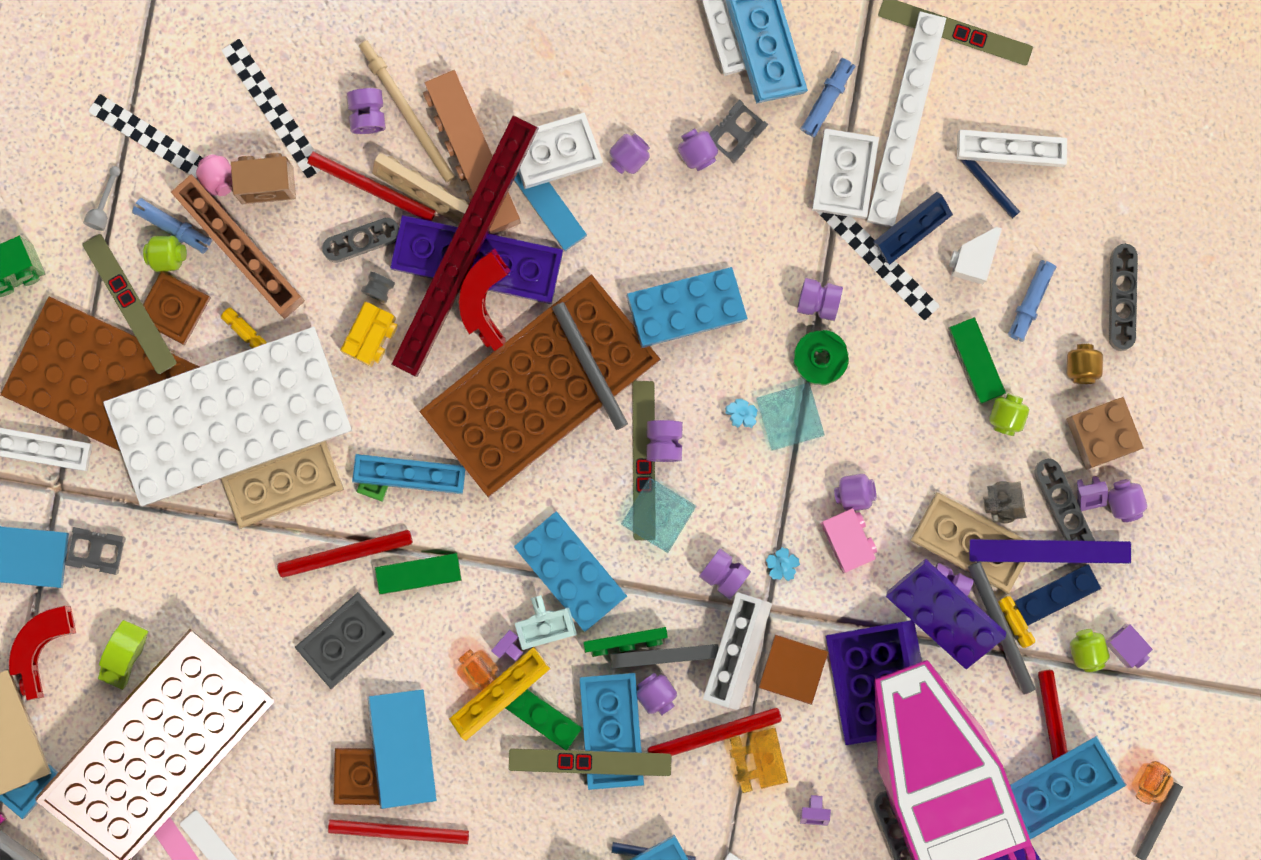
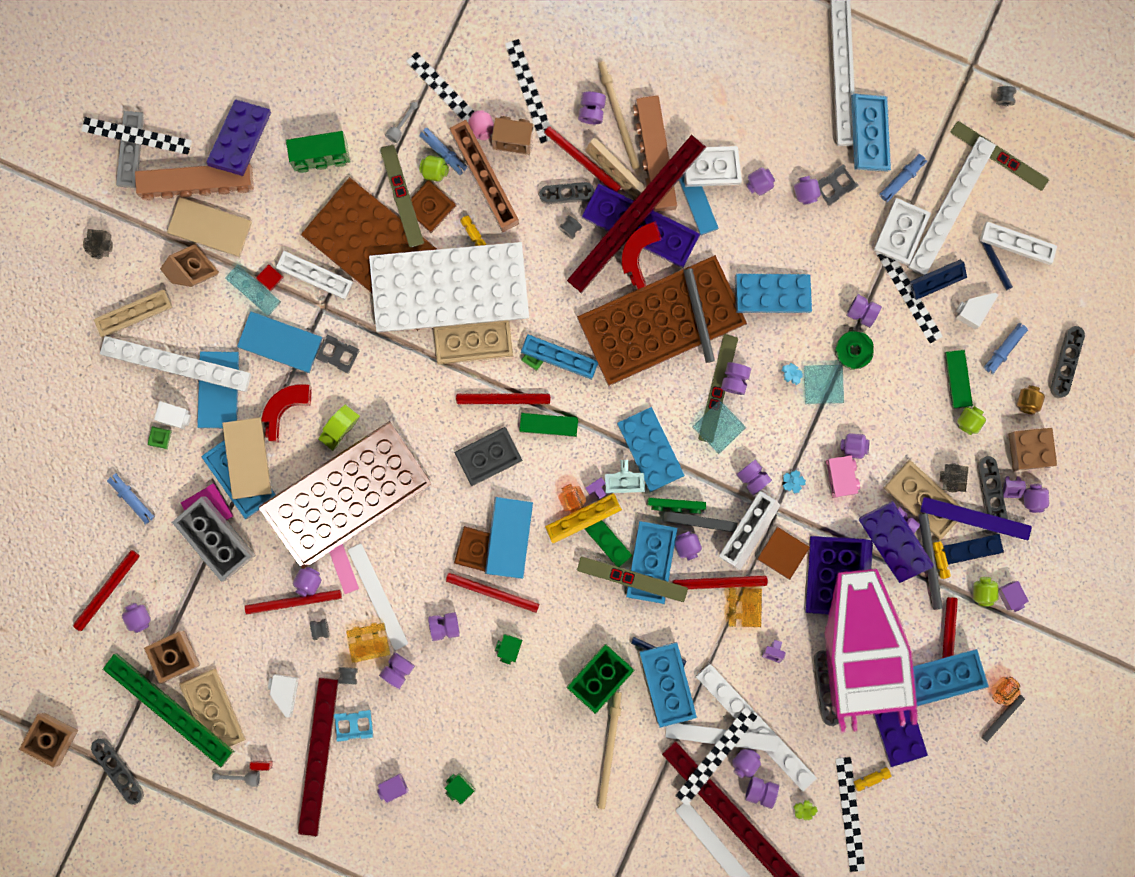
camera: 10 degrees right, 0 degrees up
(369, 334) = (556, 257): yellow brick -> none

